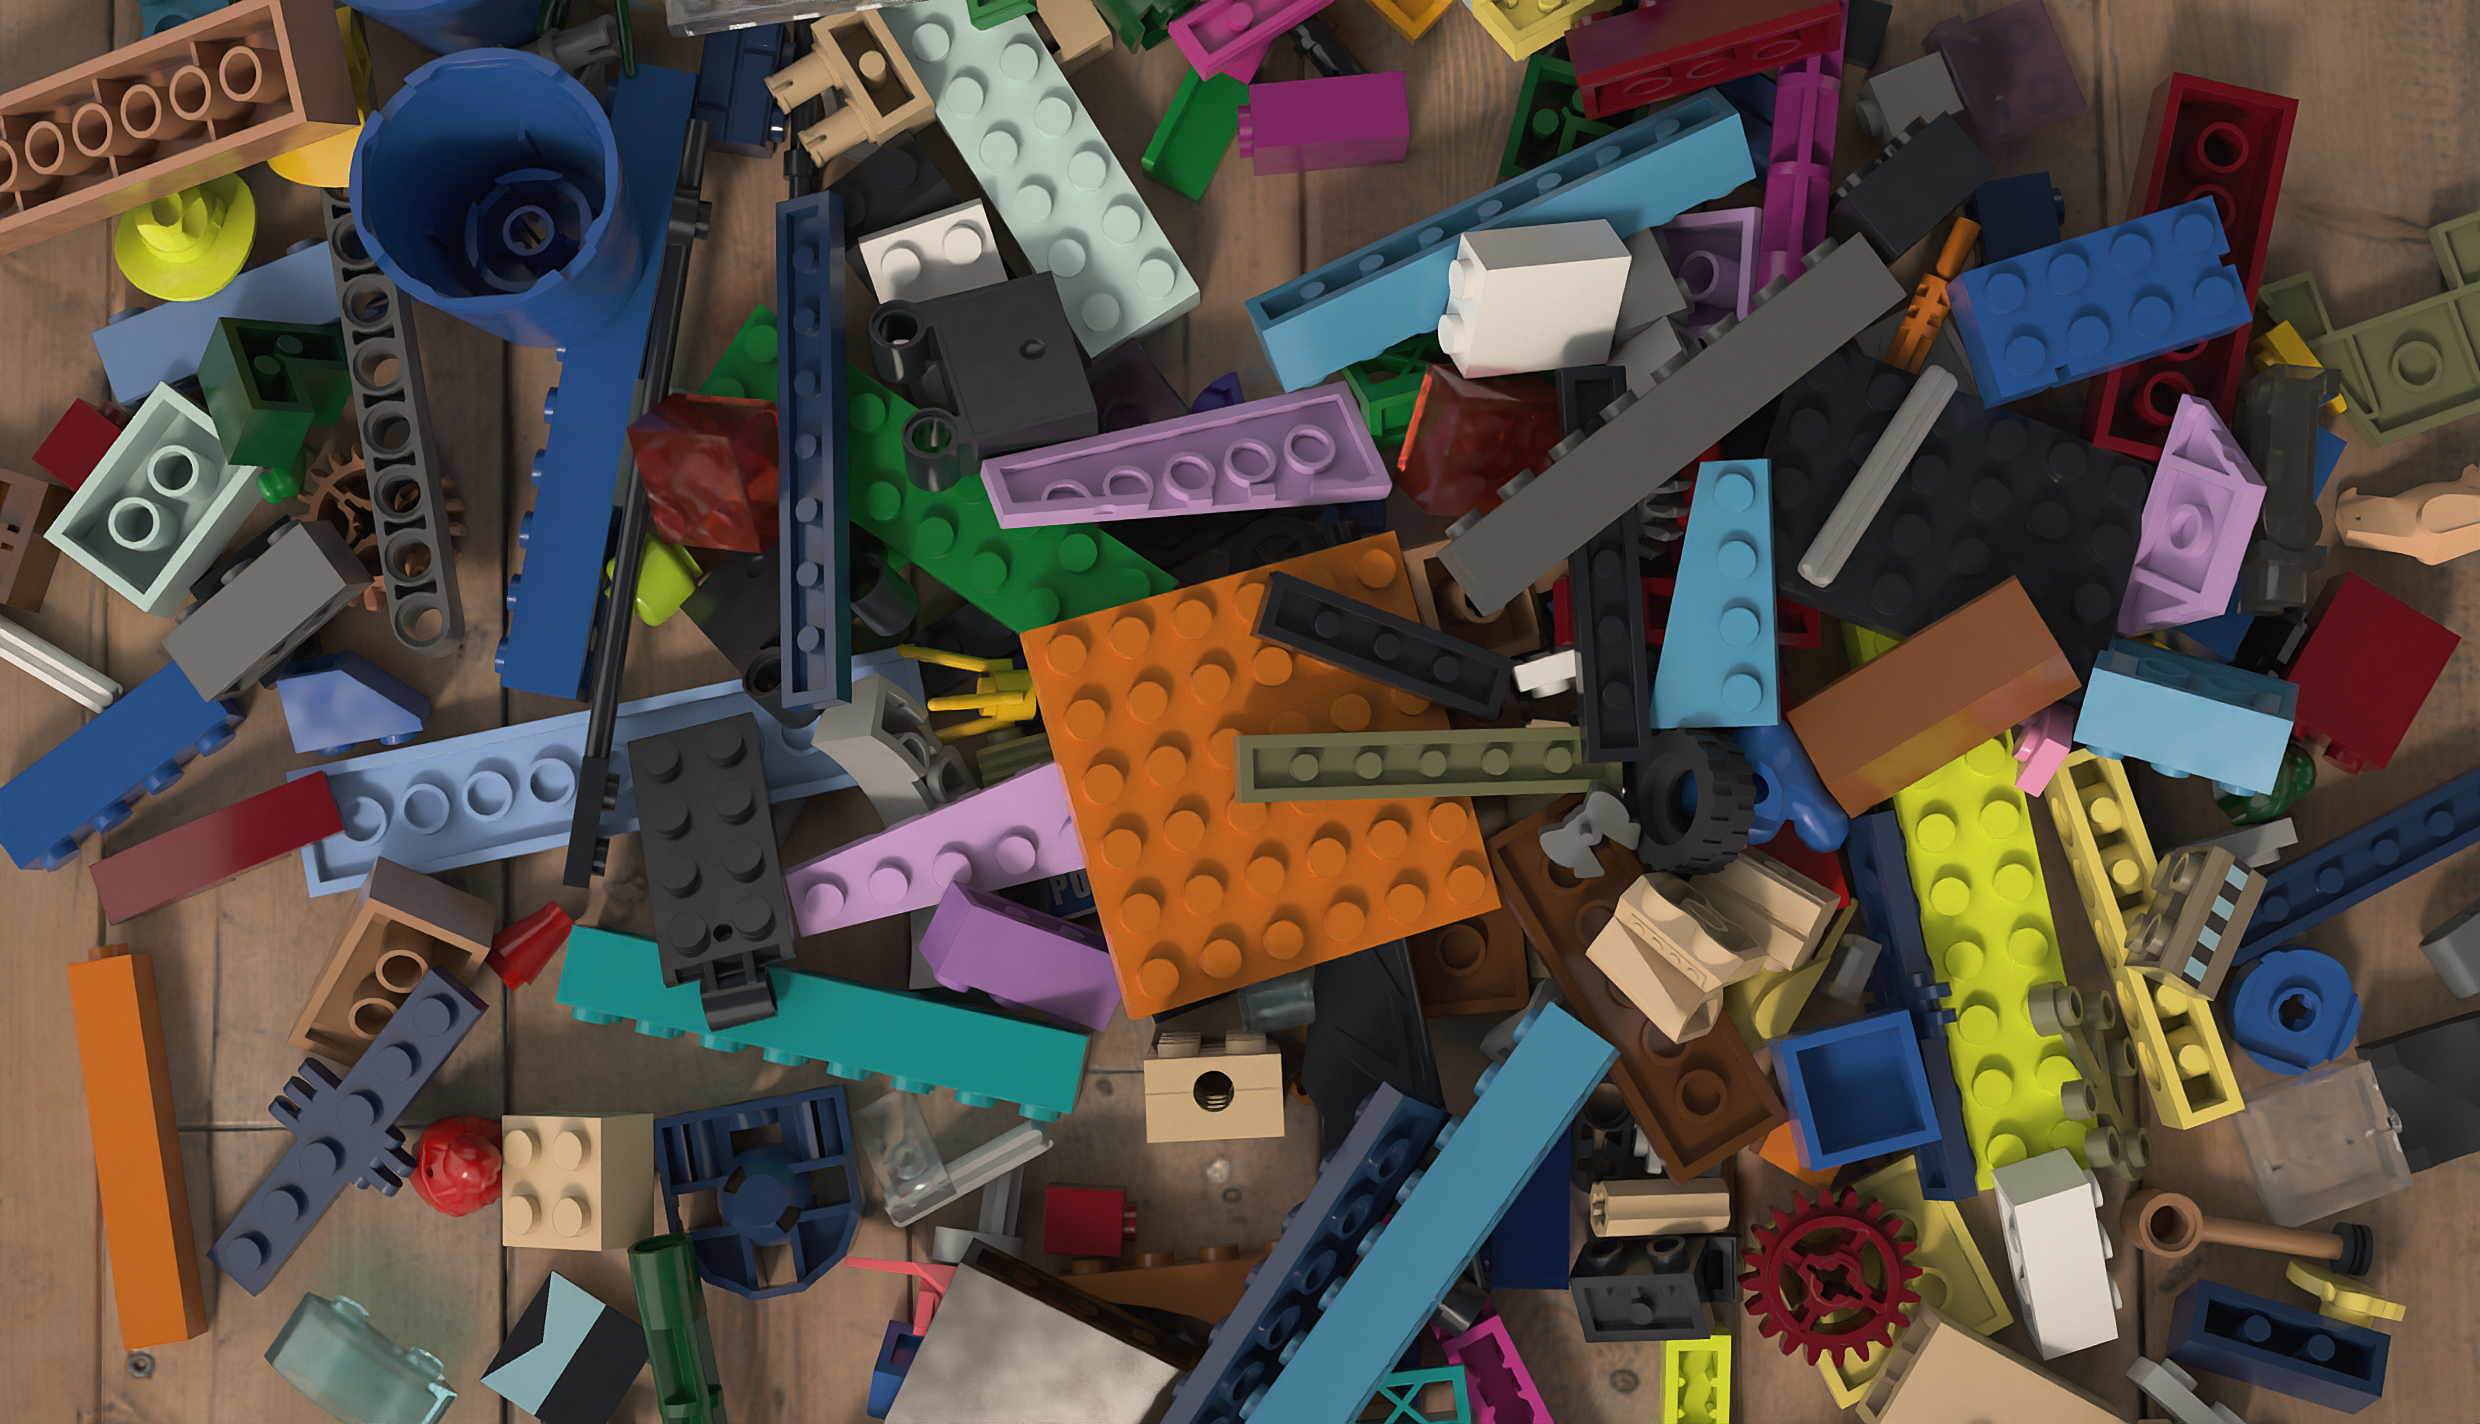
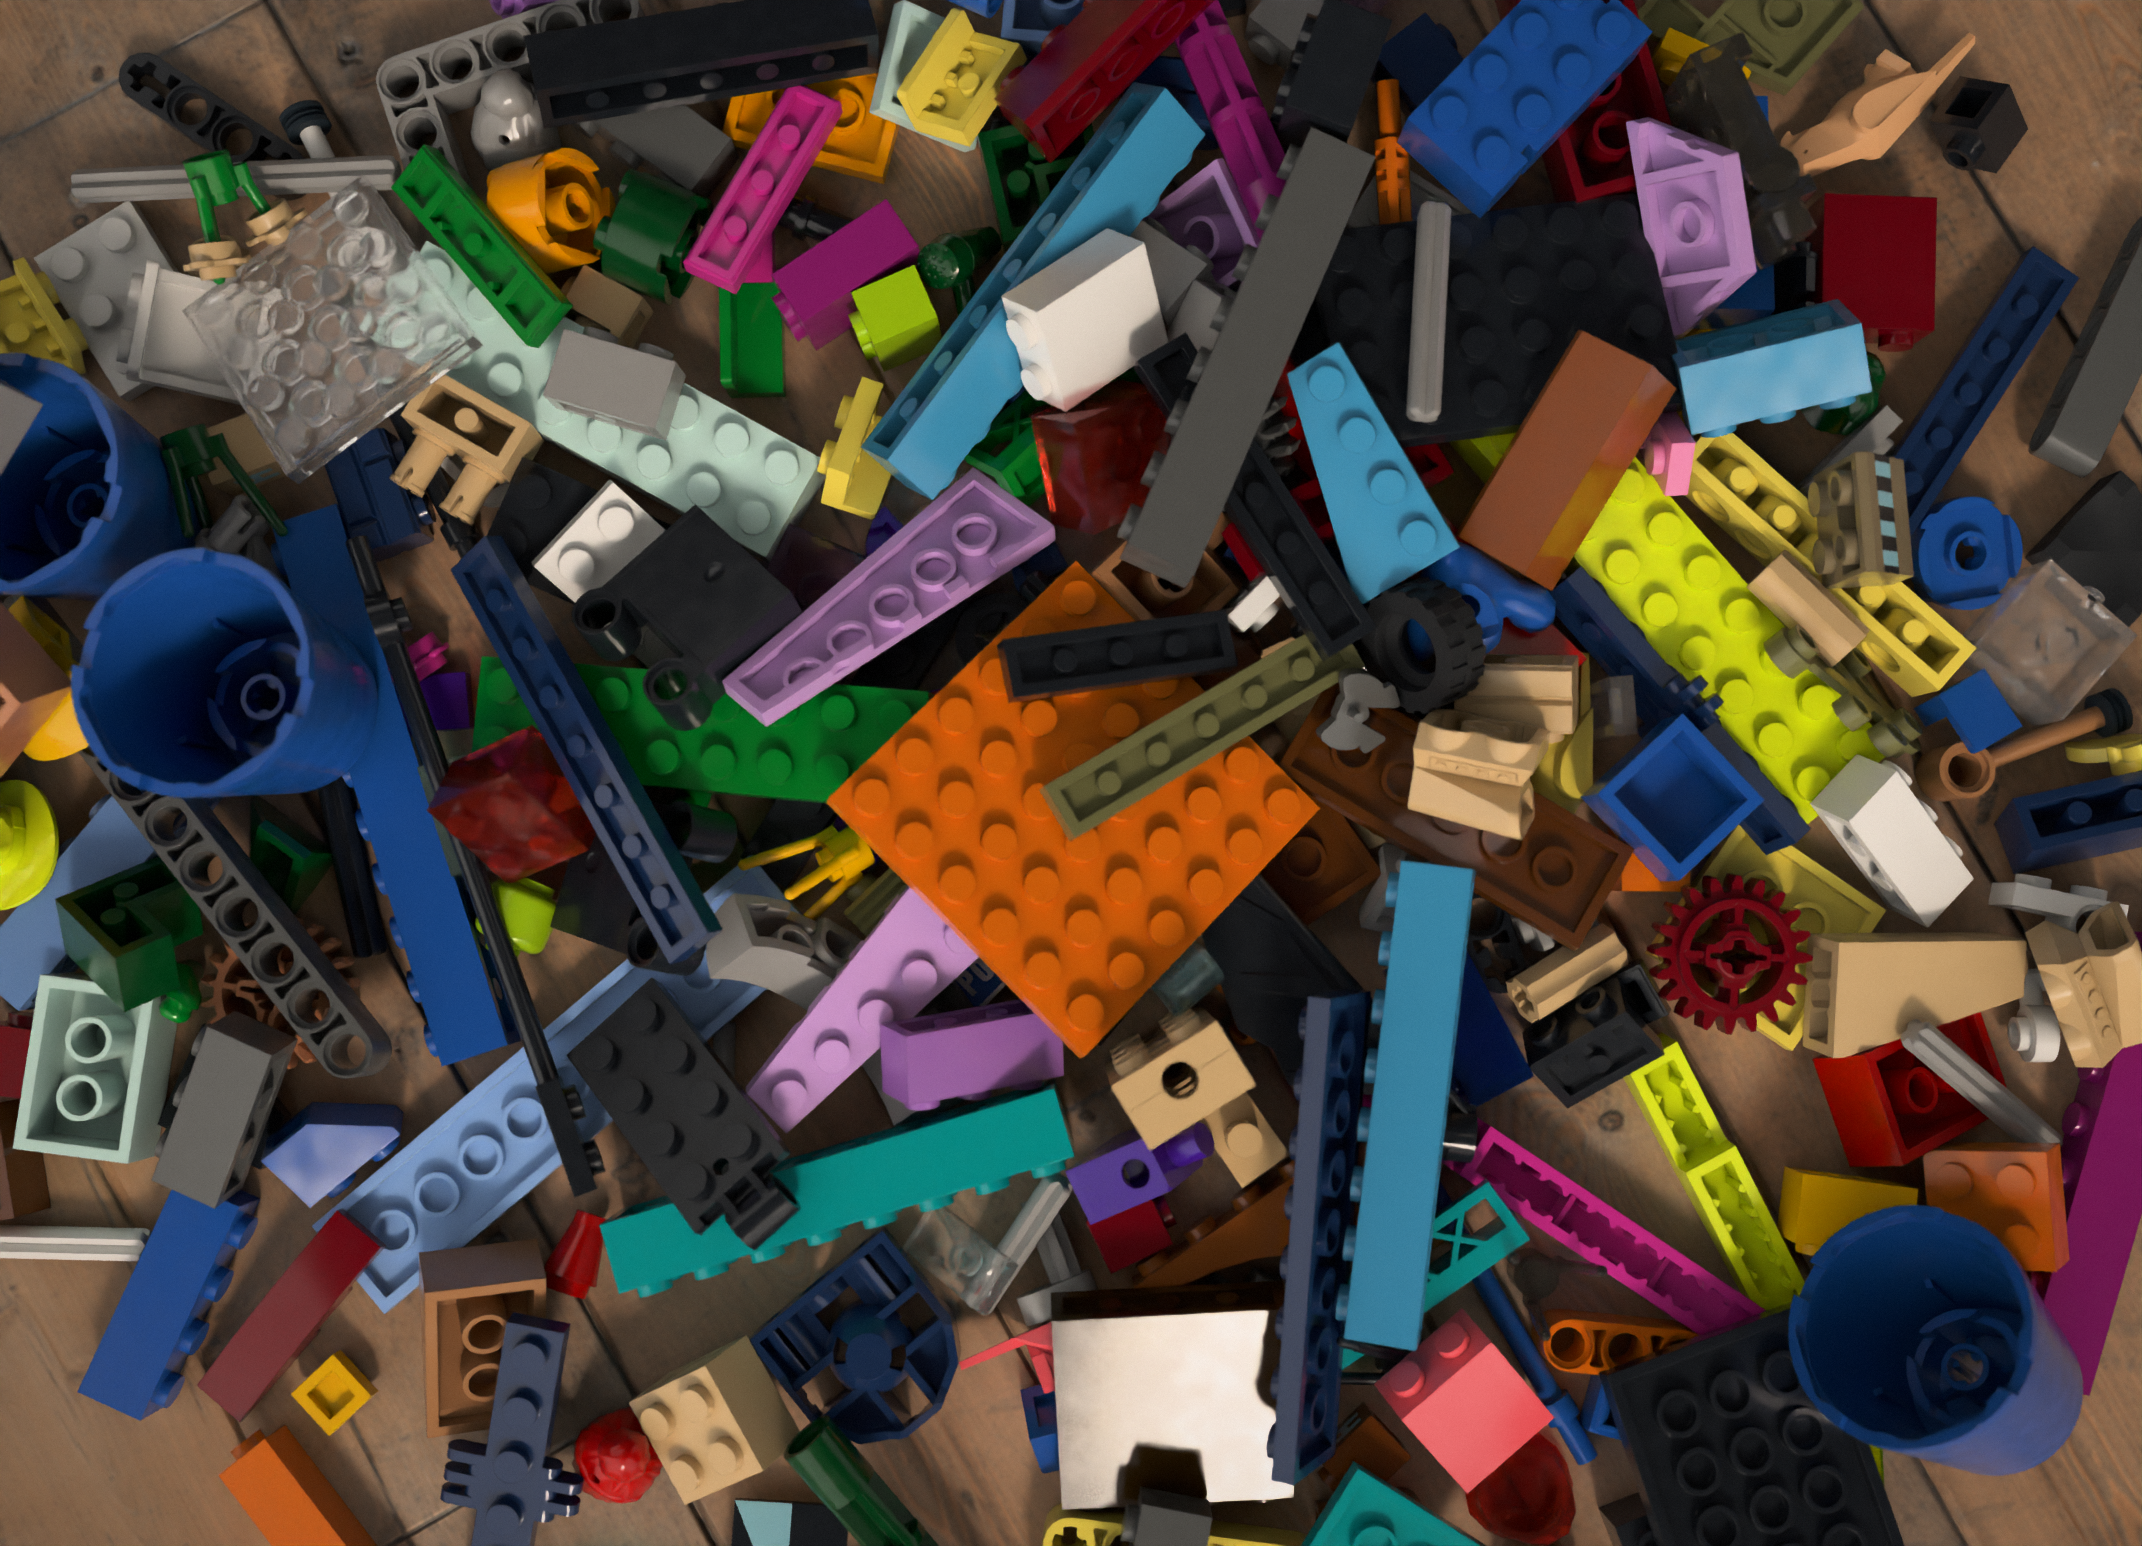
camera: 30 degrees left, 0 degrees up
(218, 947) = (334, 1392): none -> yellow plate
(458, 390) = (286, 853): none -> dark green slope
(514, 443) = (352, 870): none -> black axle
(702, 328) = (449, 700): none -> dark purple tile
(705, 270) = (427, 655): none -> dark pink plate
(1038, 107) = (615, 382): none -> light grey brick
(1139, 1167) = (1100, 1177): none -> dark purple torso
(1221, 327) = (852, 476): none -> light yellow bracket
(1246, 1189) = (1244, 1139): none -> tan torso
(1348, 192) = (895, 319): none -> lime brick
(1442, 163) = (956, 257): none -> dark green piece
(2098, 971) = (1803, 601): none -> tan axle
(2211, 1171) = (1974, 711): none -> blue panel

